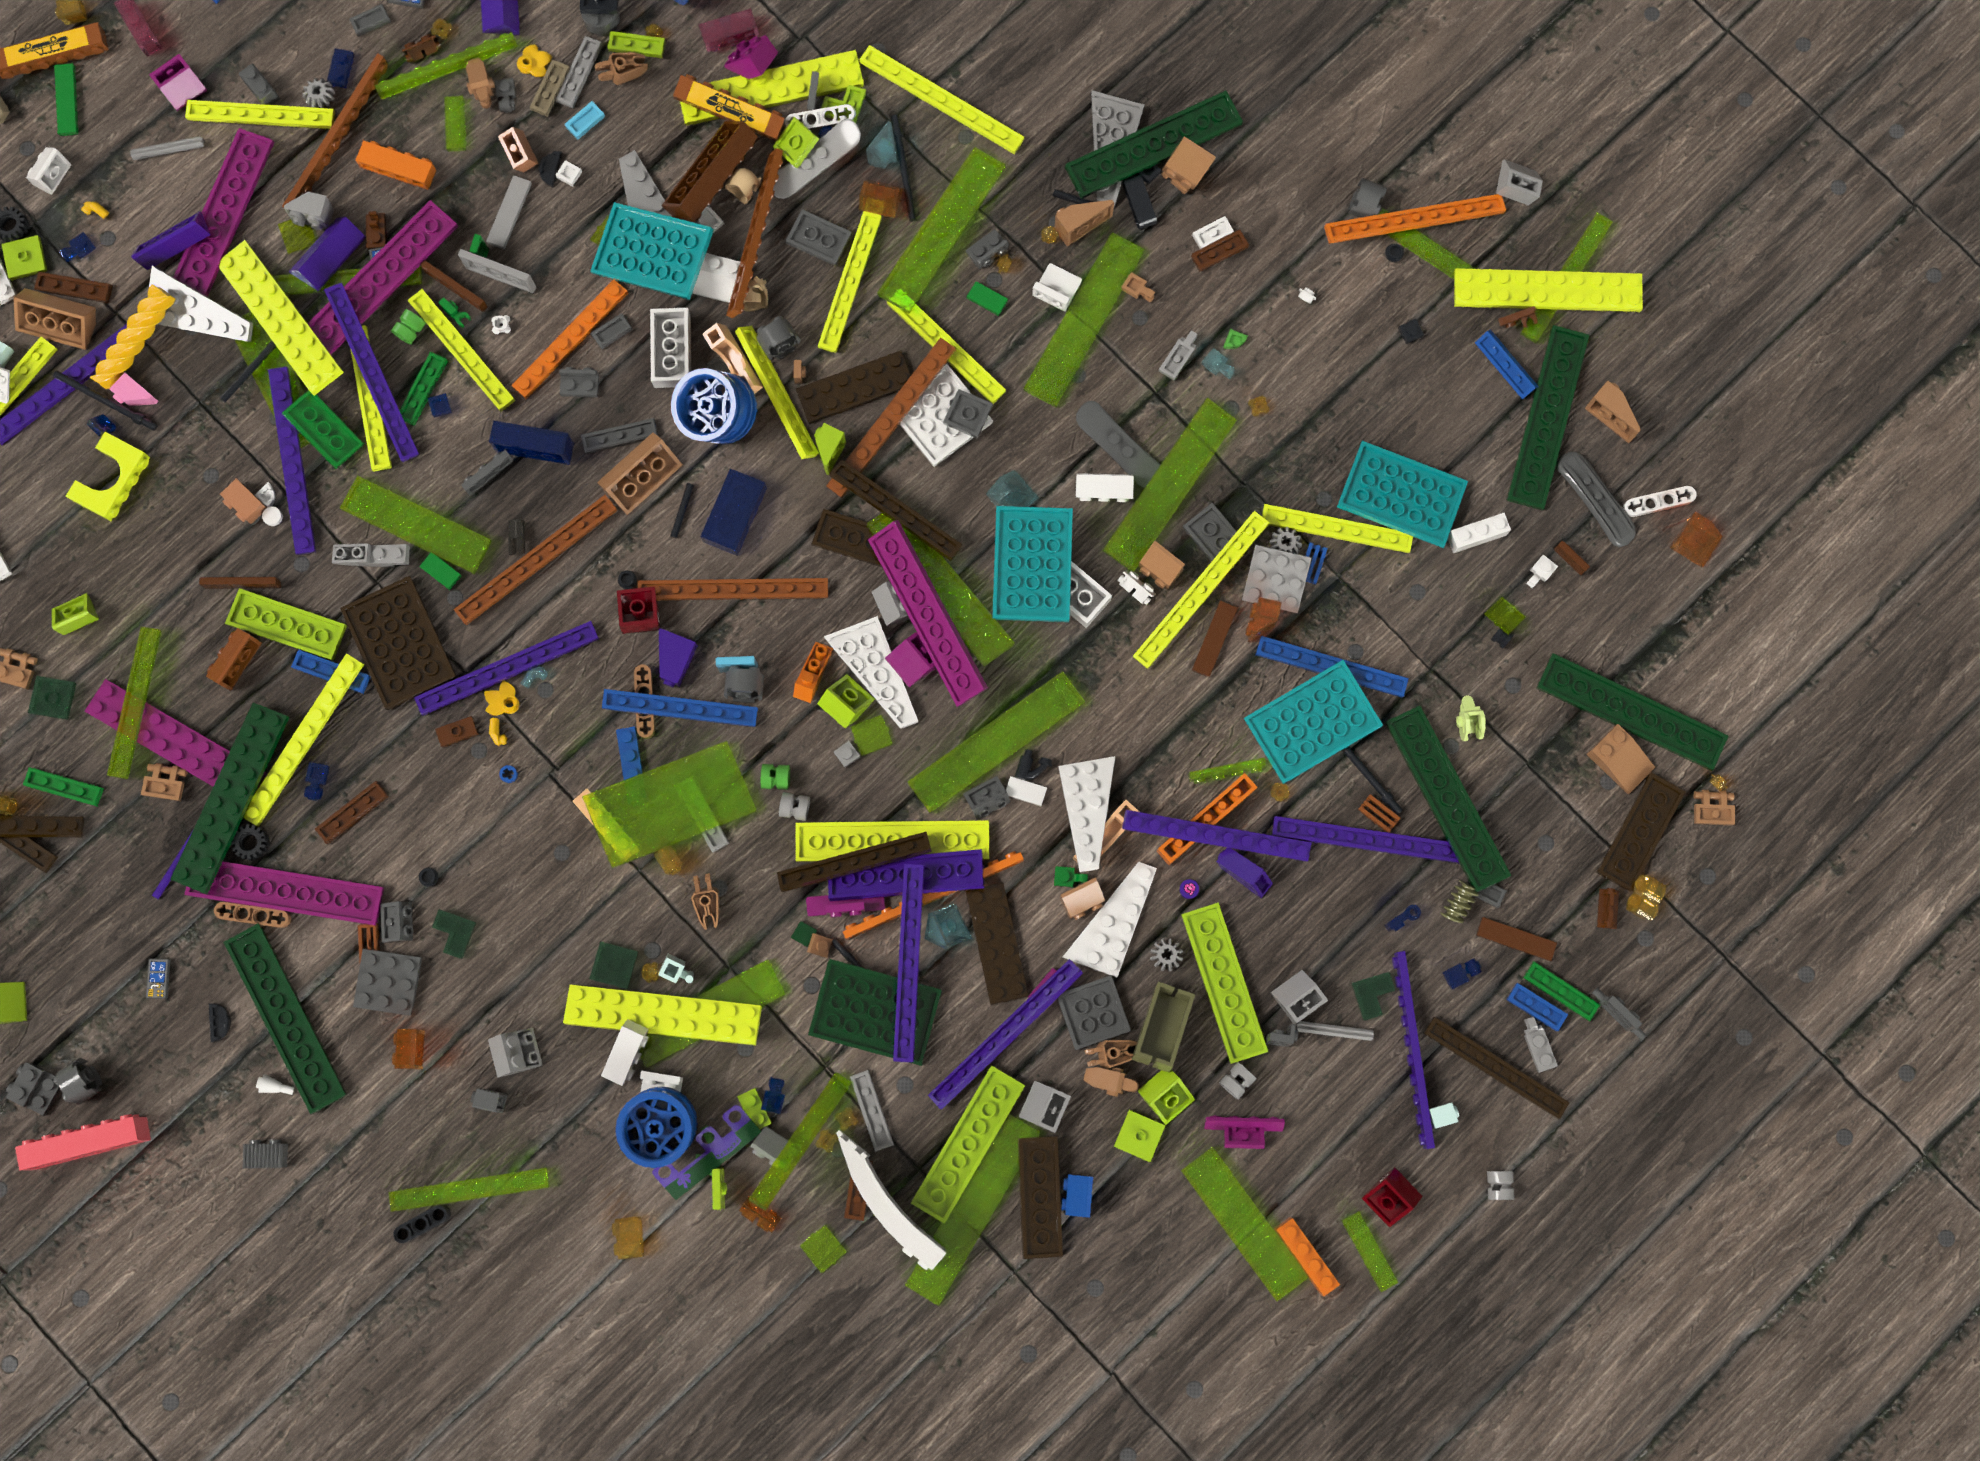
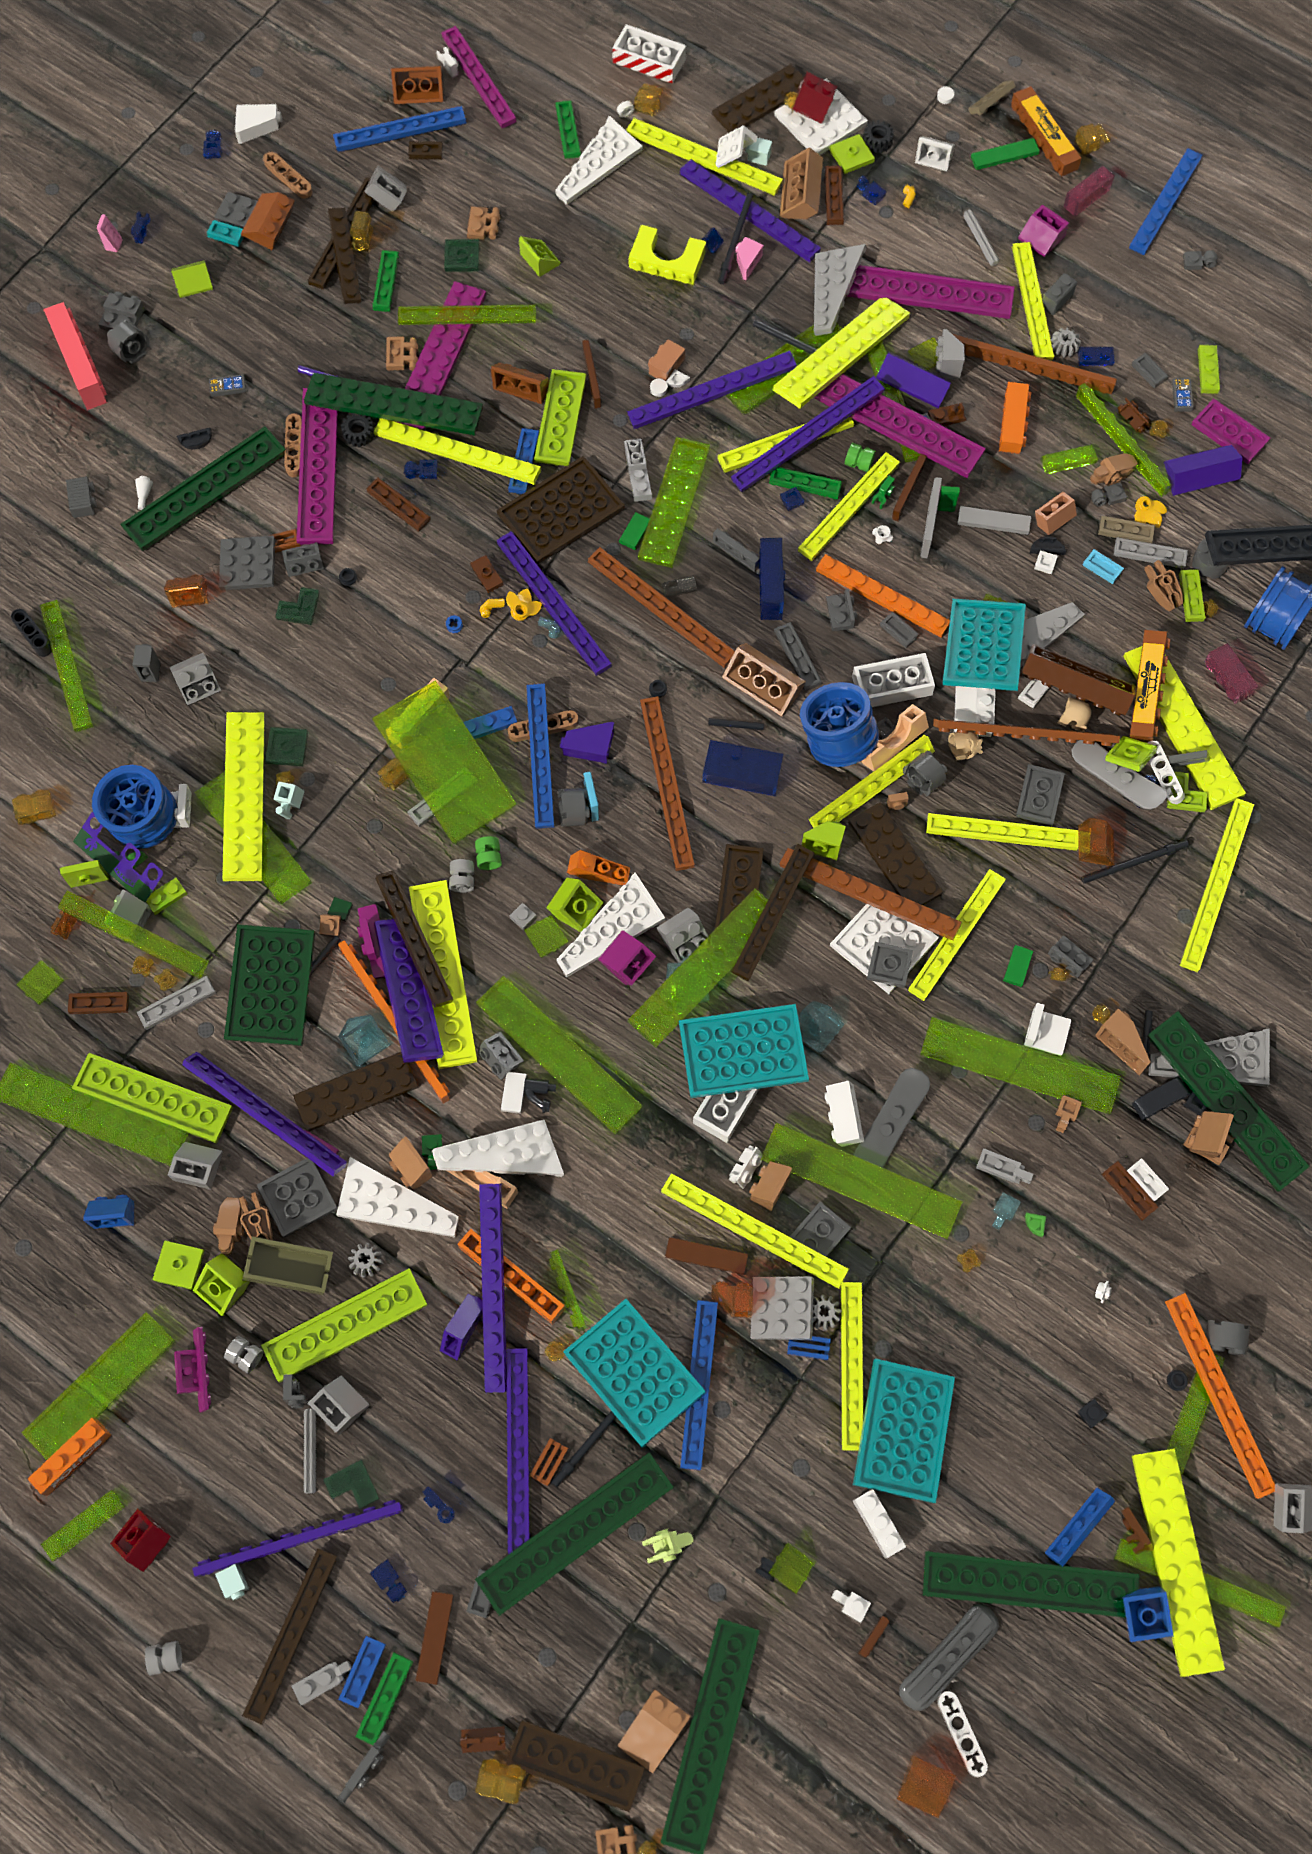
camera: 80 degrees right, 10 degrees down
(132, 340) = (797, 245): yellow piece -> none
(171, 241) = (892, 256): dark purple slope -> none
(323, 429) = (746, 407): green tile -> none
(625, 1052) = (203, 768): white brick -> none
(638, 610) = (628, 701): dark red slope -> none
(706, 901) = (356, 814): medium nougat hinge -> none
(751, 57) = (1208, 697): magenta slope -> none
(773, 1099) = (176, 910): clear blue plate -> none
(882, 148) = (1149, 835): clear light blue slope -> none
(886, 1210) = (79, 1027): white slope -> none
(908, 963) = (319, 1004): dark purple plate -> none
(927, 613) = (671, 958): magenta plate -> none
(941, 230) = (1078, 907): clear neon green plate -> none
(1040, 1197) = (105, 1174): dark brown plate -> none
(1189, 889) = (438, 1273): dark purple tile -> none
(1460, 903) = (463, 1565): olive piece -> none
(1589, 323) = (1148, 1614): none -> blue slope
(1614, 411) = (1057, 1654): medium nougat slope -> none

